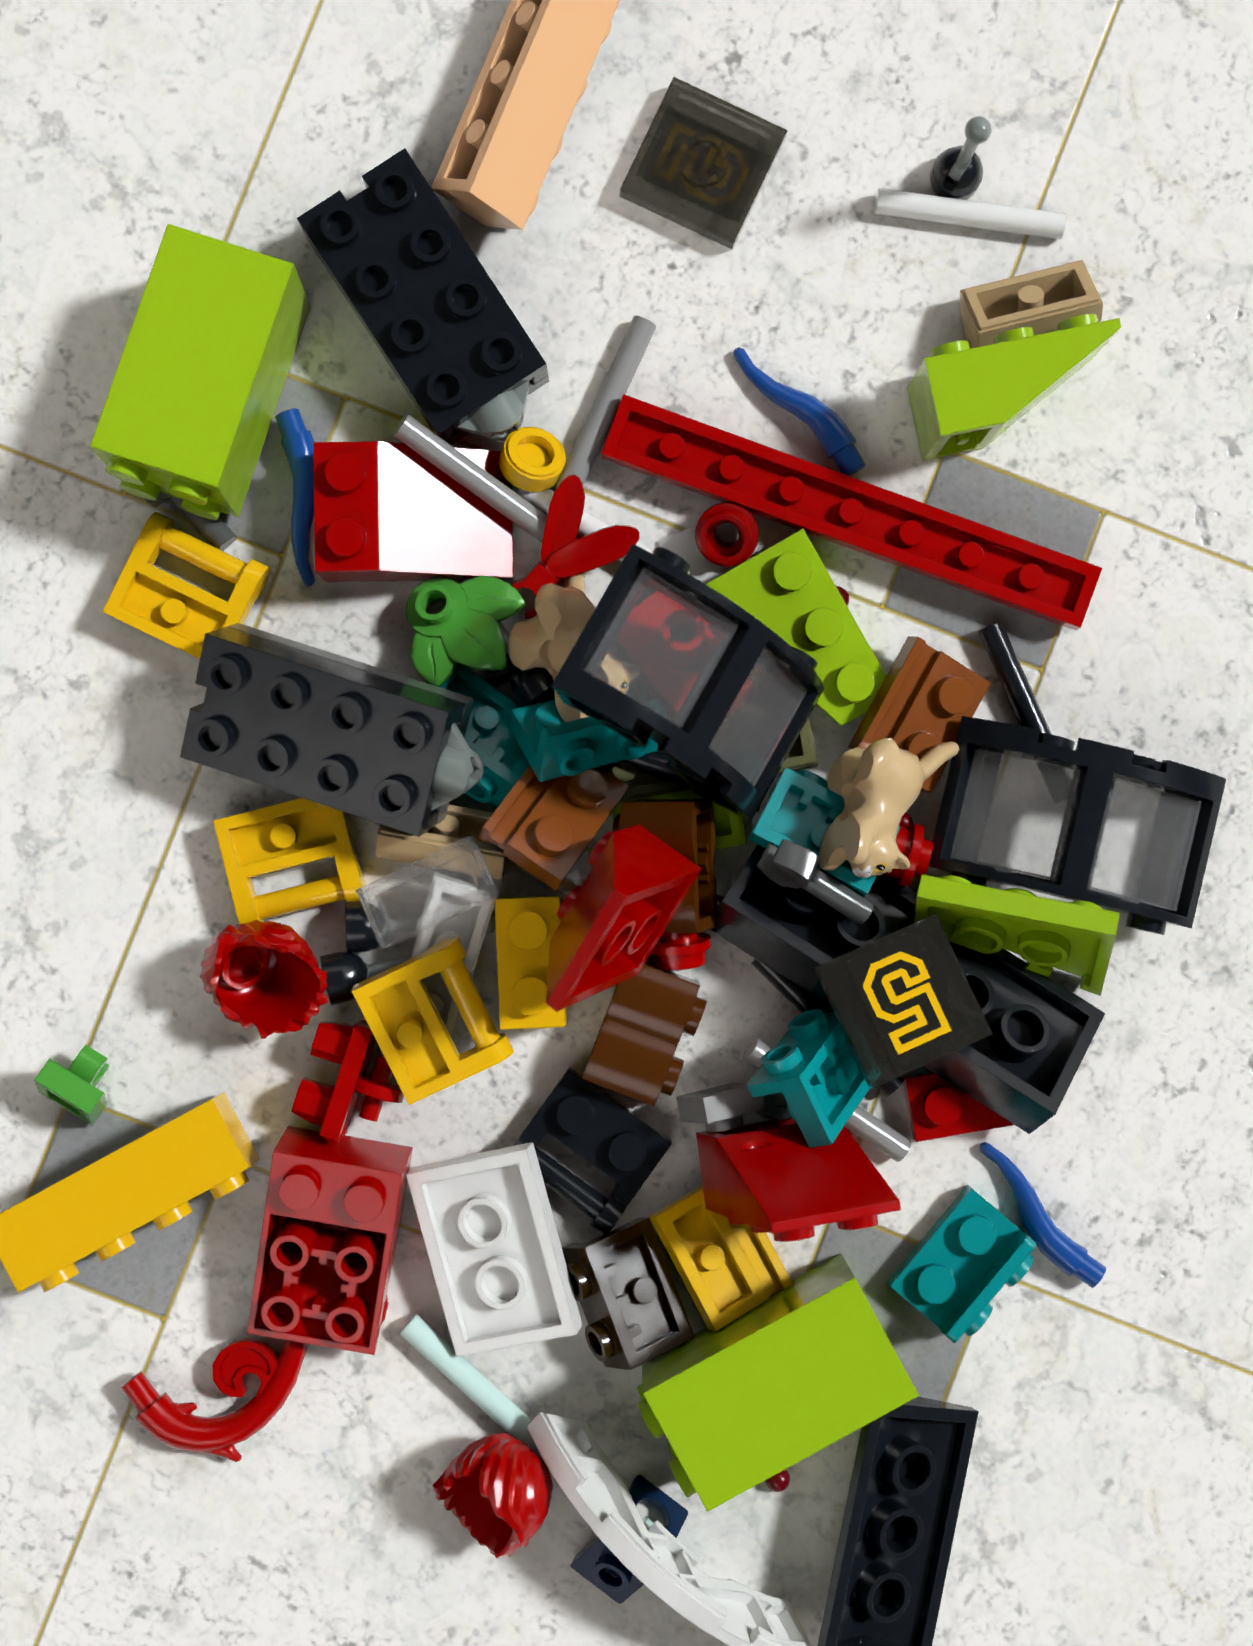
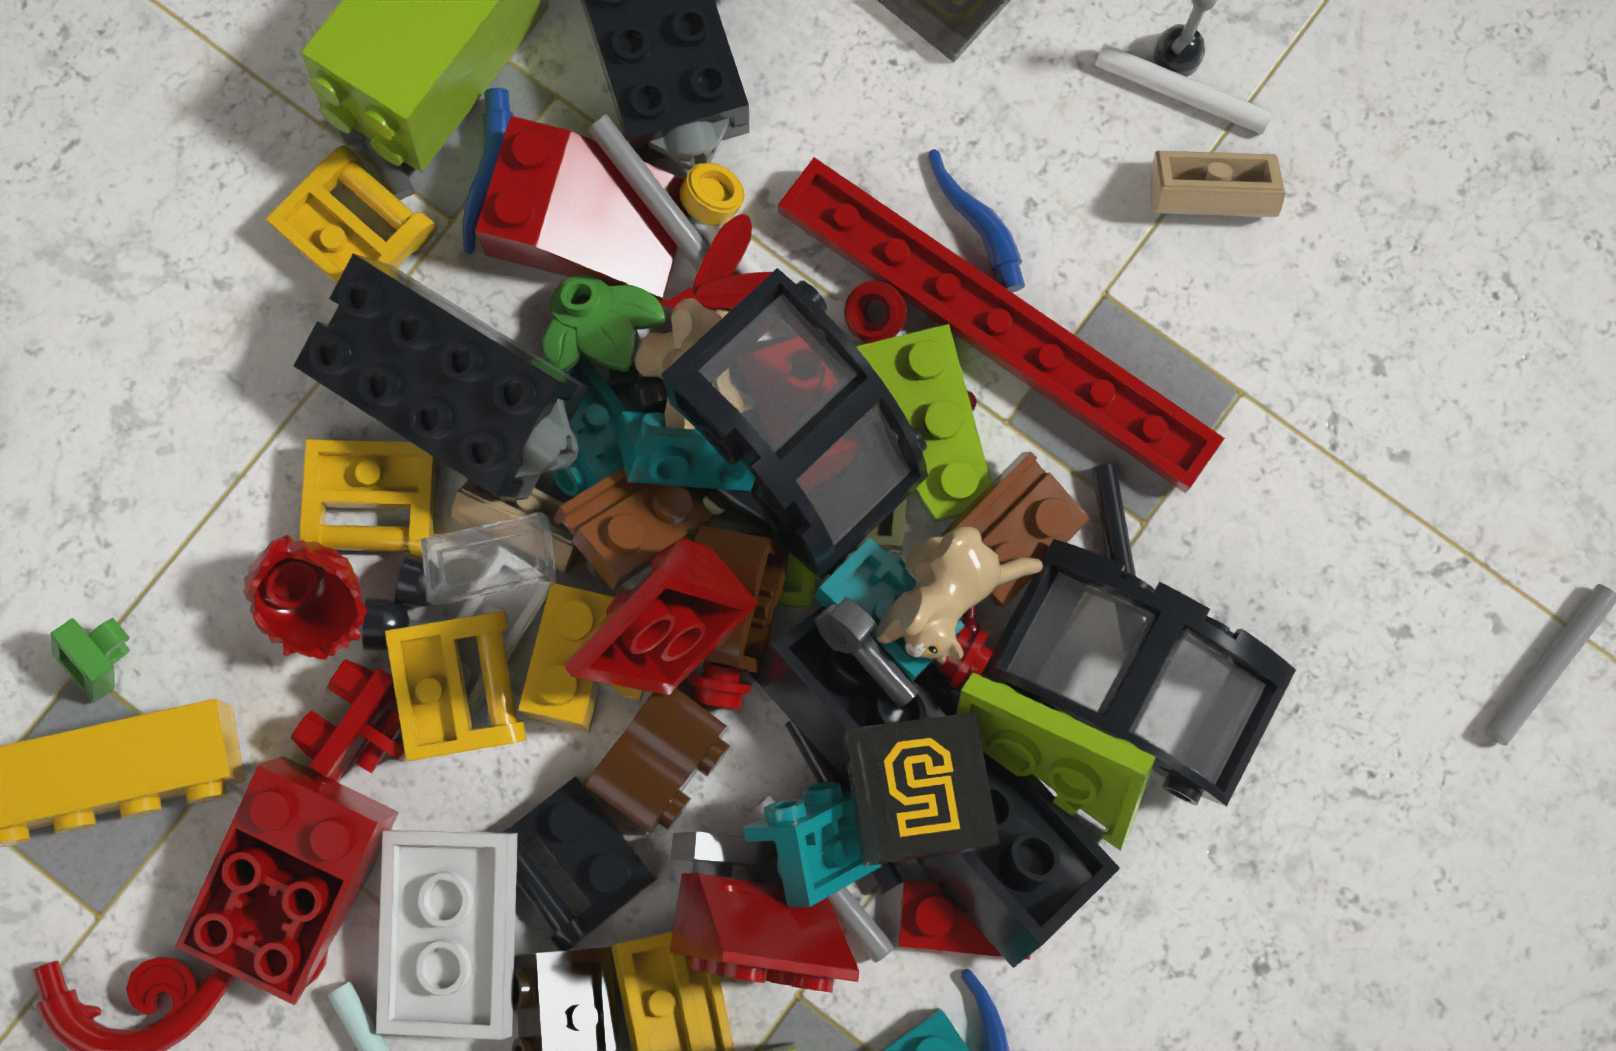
camera: 15 degrees right, 10 degrees down
(608, 399) = (814, 145): light grey bar -> none
(975, 394) = (1157, 241): lime slope -> none

